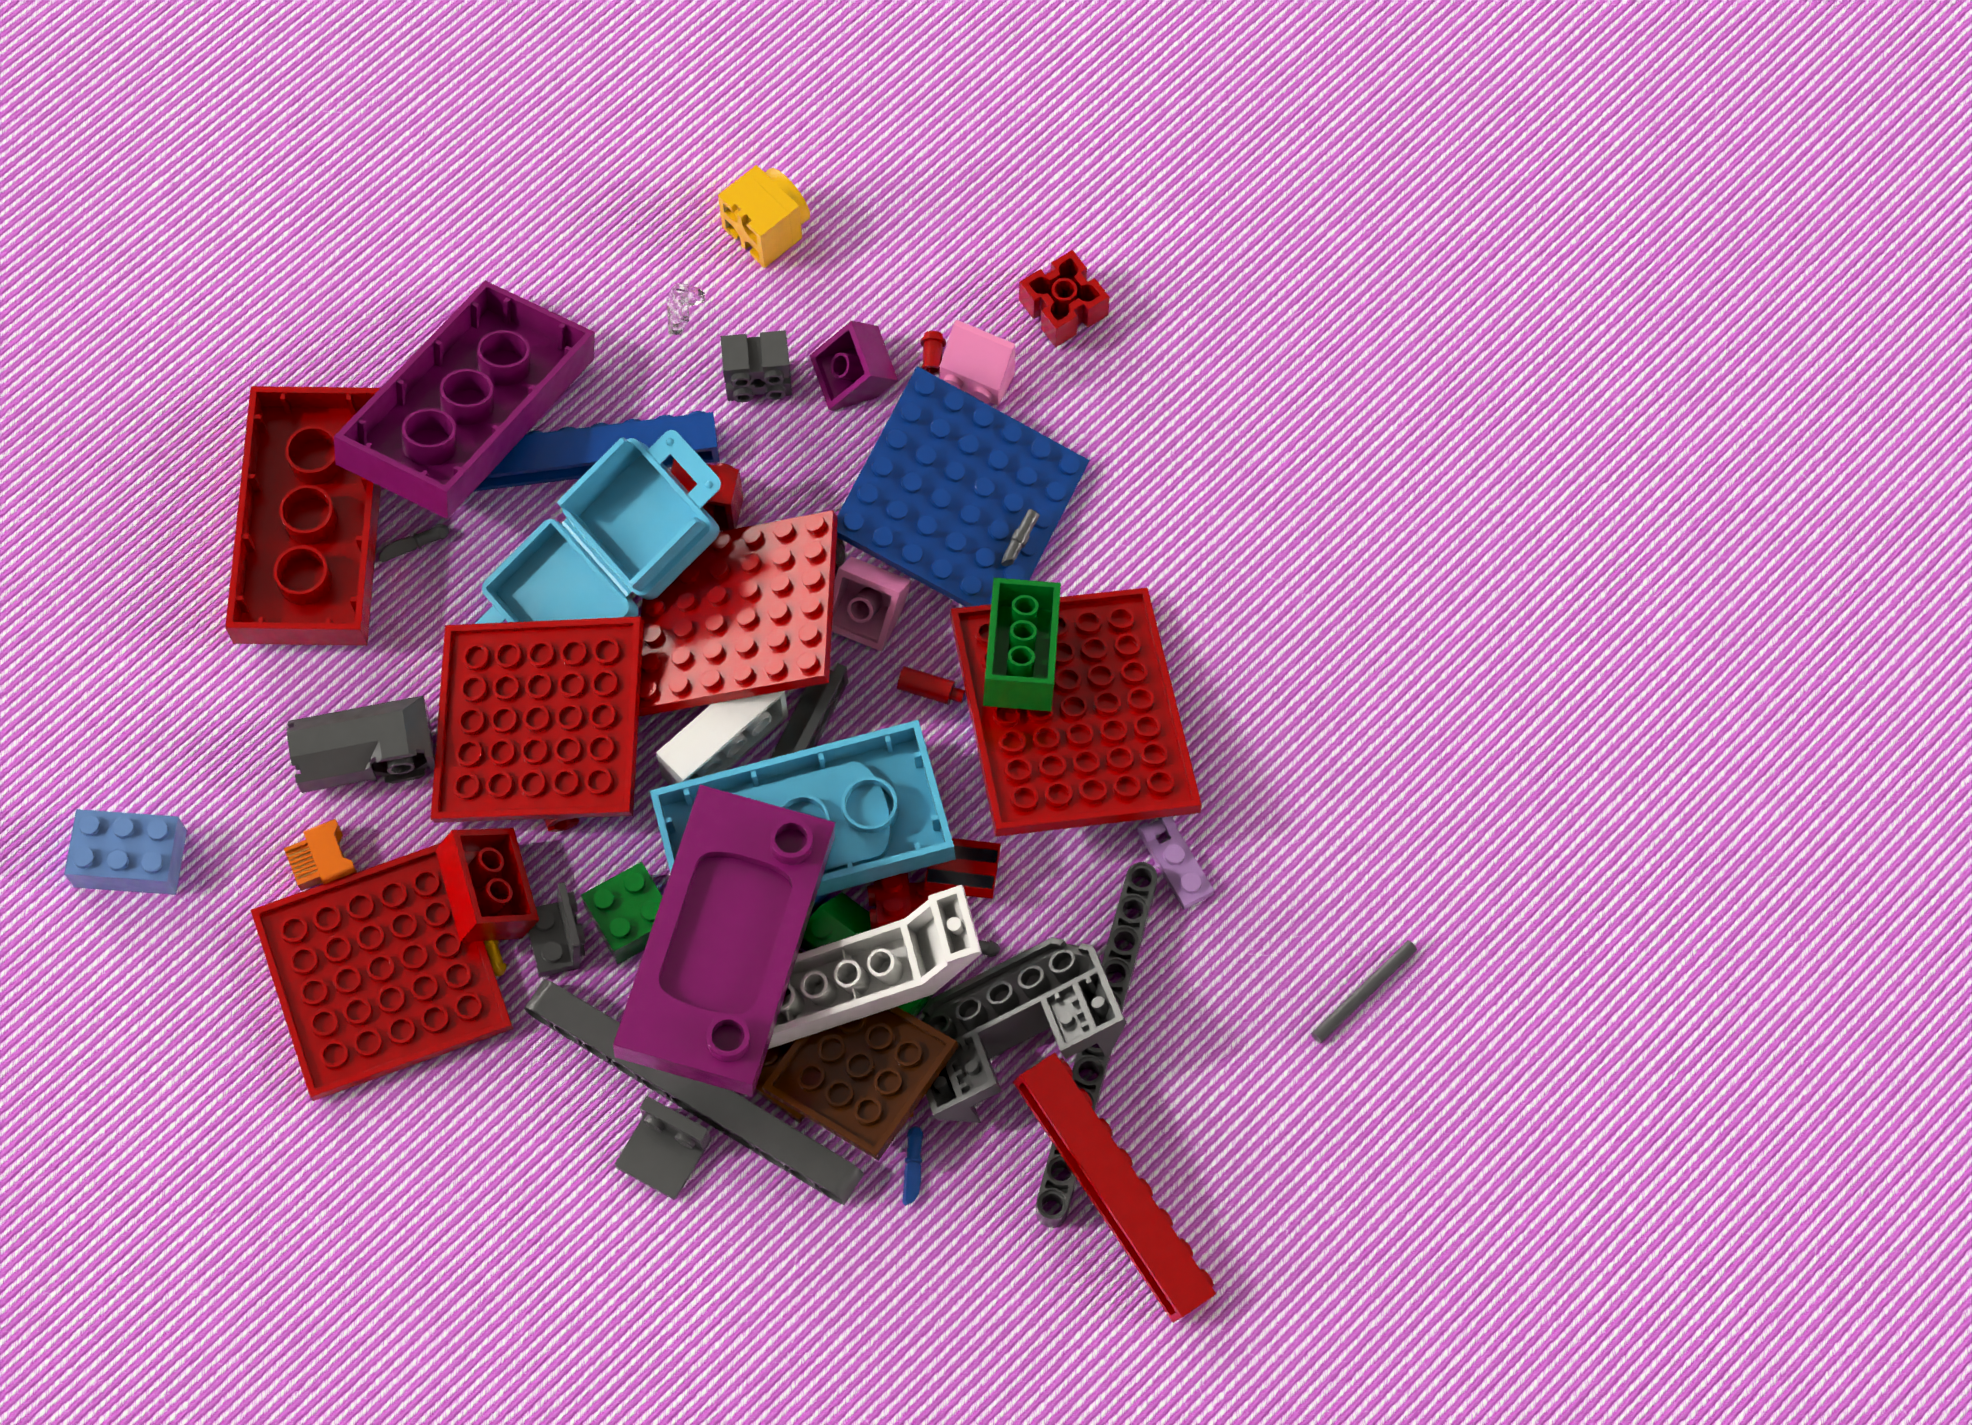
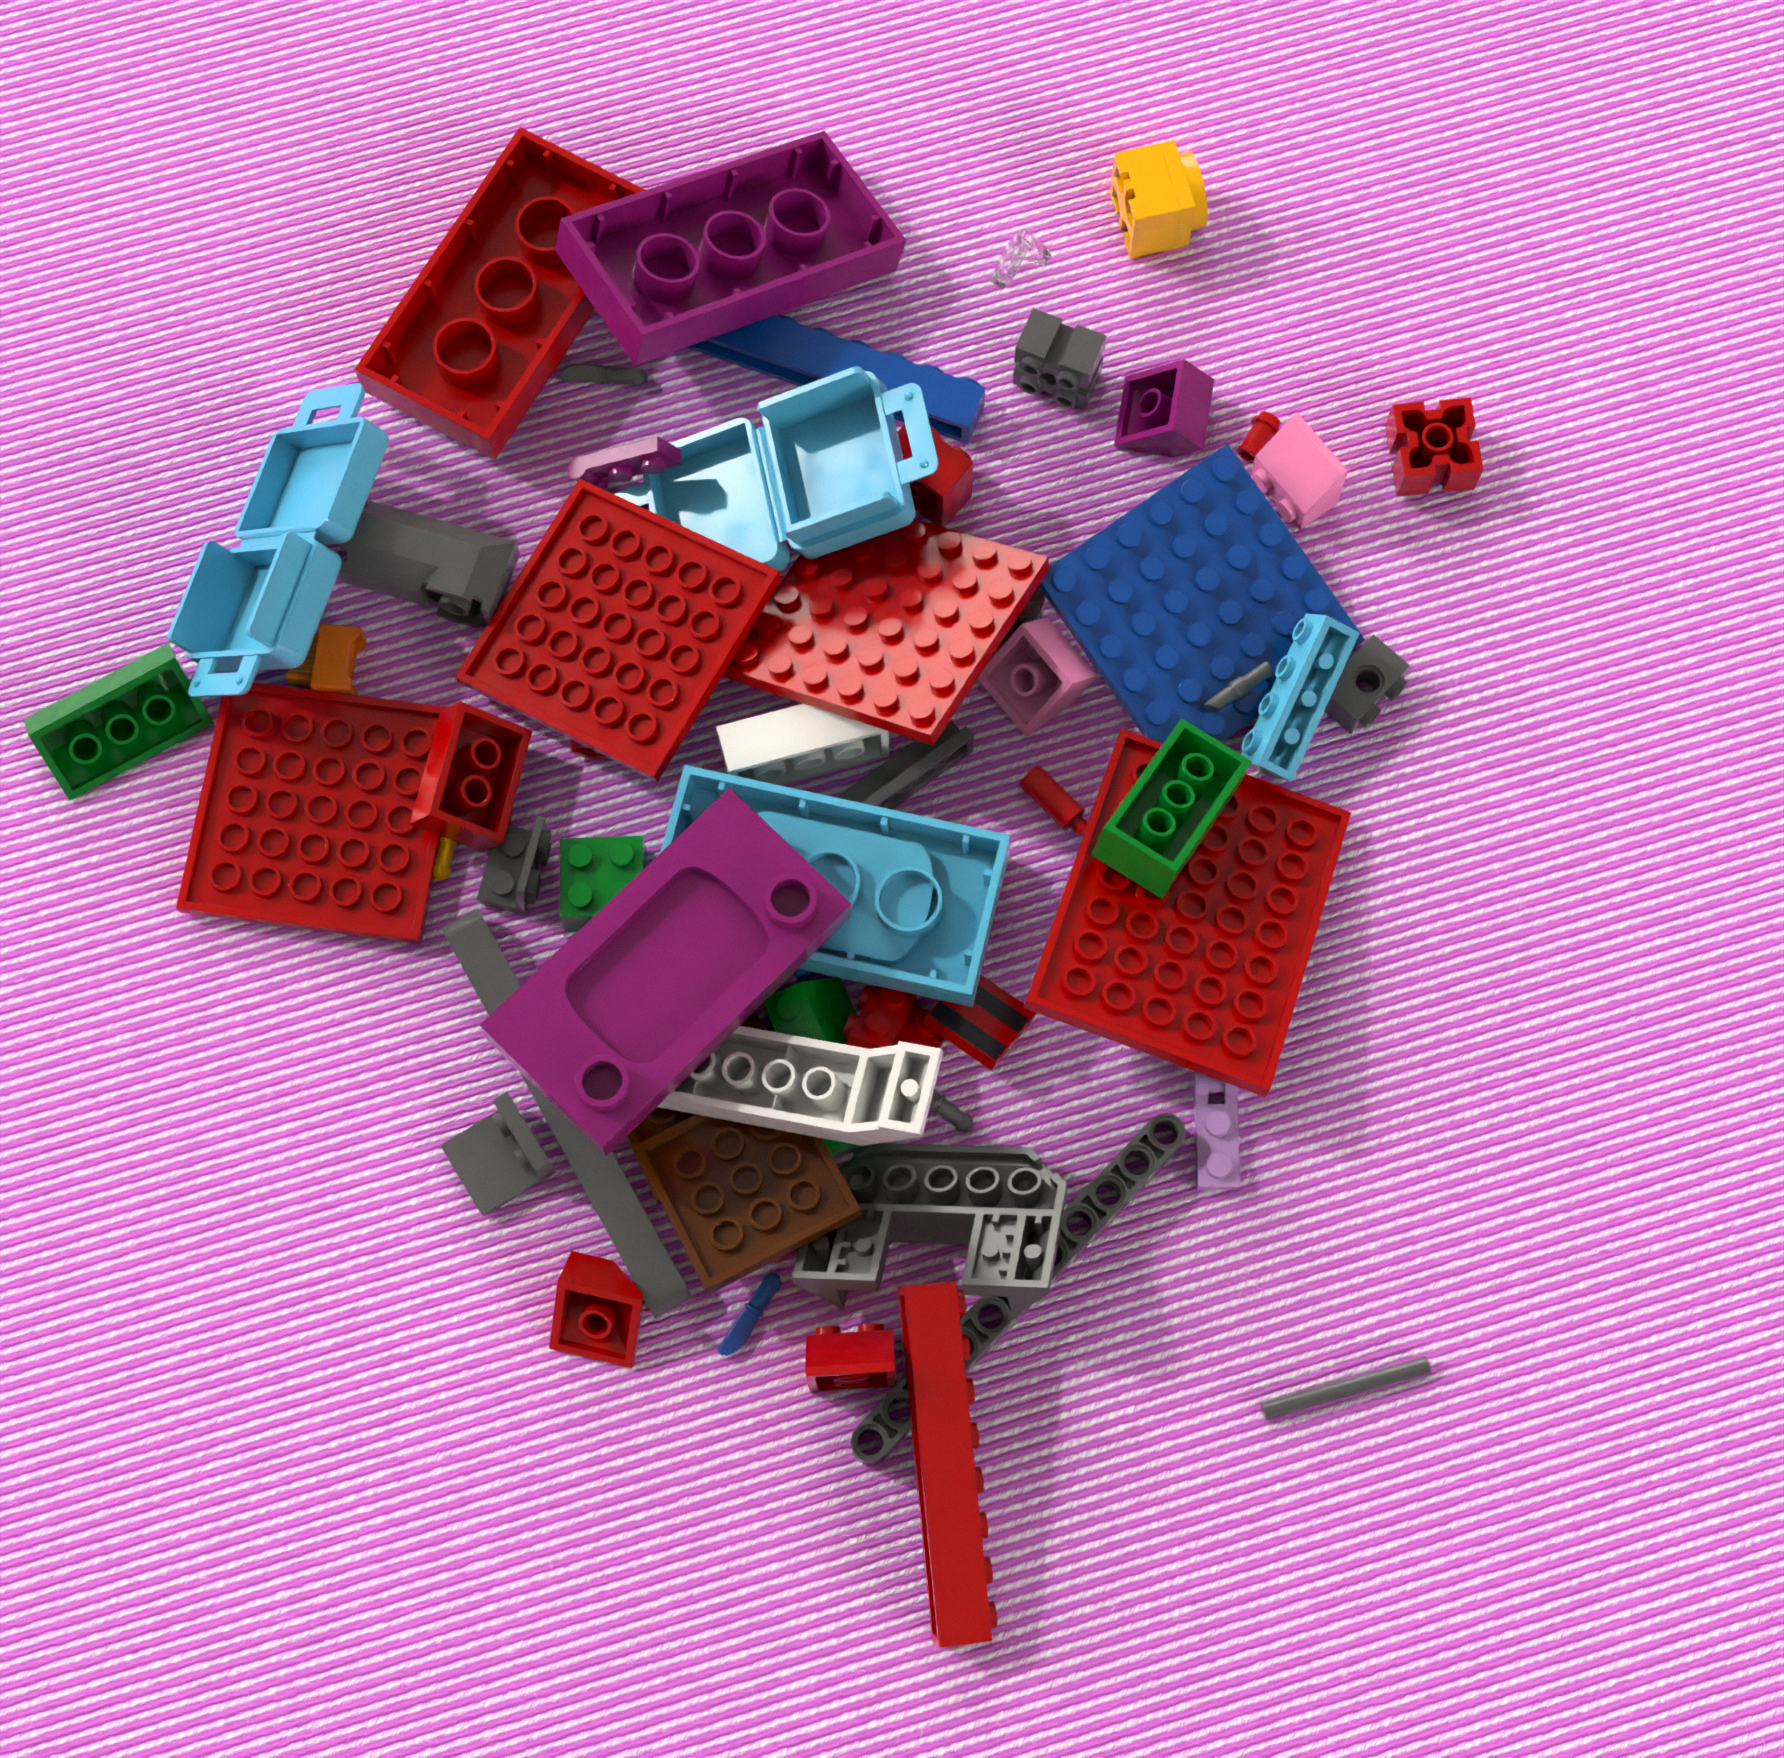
camera: 30 degrees right, 5 degrees up
(125, 852) = (134, 553): medium blue brick -> none
(183, 983) = (117, 722): none -> green slope
(256, 808) = (267, 597): none -> medium azure piece
(472, 596) = (625, 461): none -> magenta plate
(801, 1220) = (596, 1311): none -> red slope
(1007, 1155) = (850, 1359): none -> red slope
(1066, 521) = (1298, 695): none -> medium azure brick
(1112, 475) = (1372, 664): none -> dark grey brick

